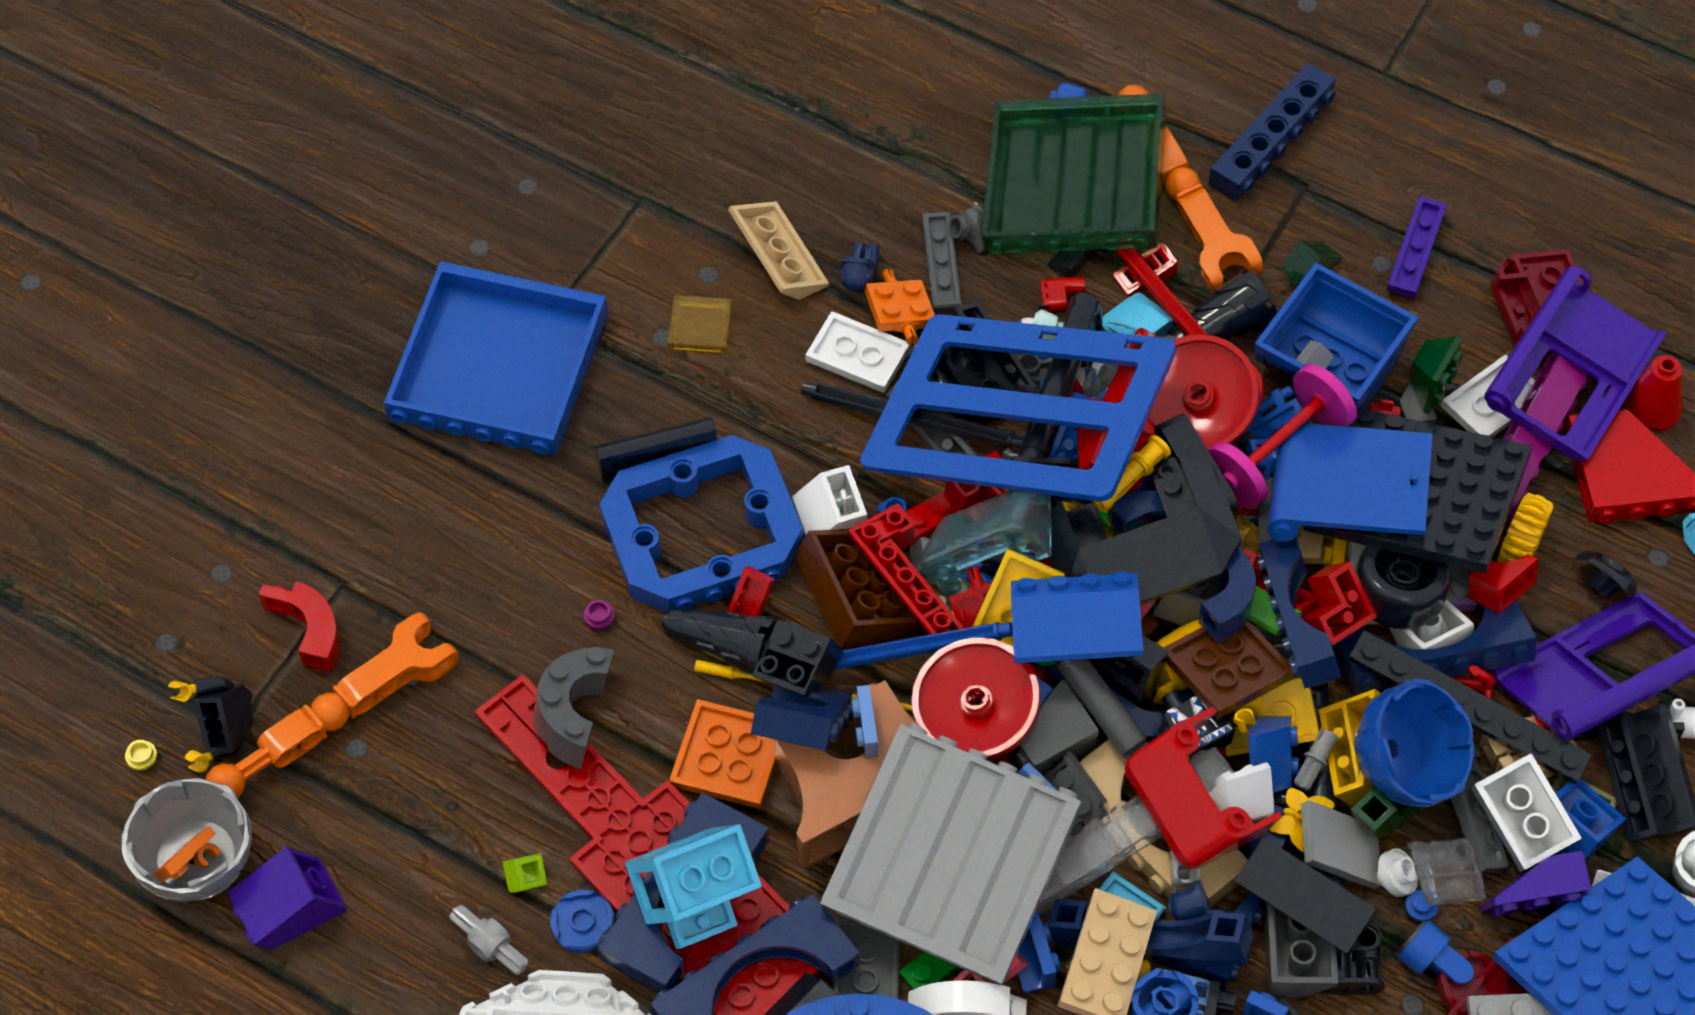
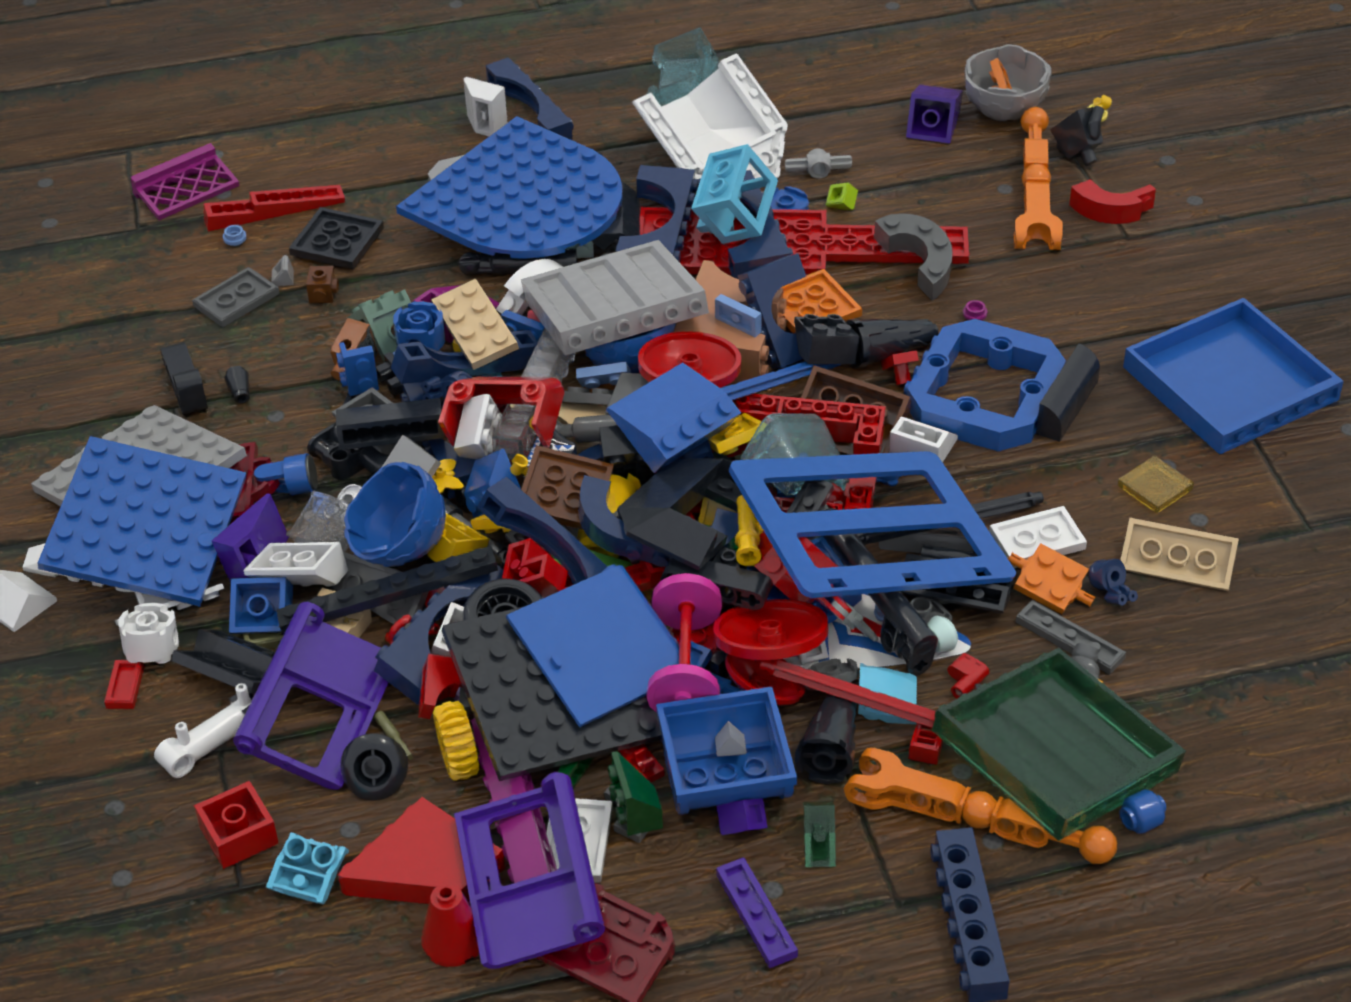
camera: 135 degrees right, 15 degrees down
(1315, 759) = (461, 507): light grey axle -> none
(1556, 612) = (391, 731): none -> olive piece

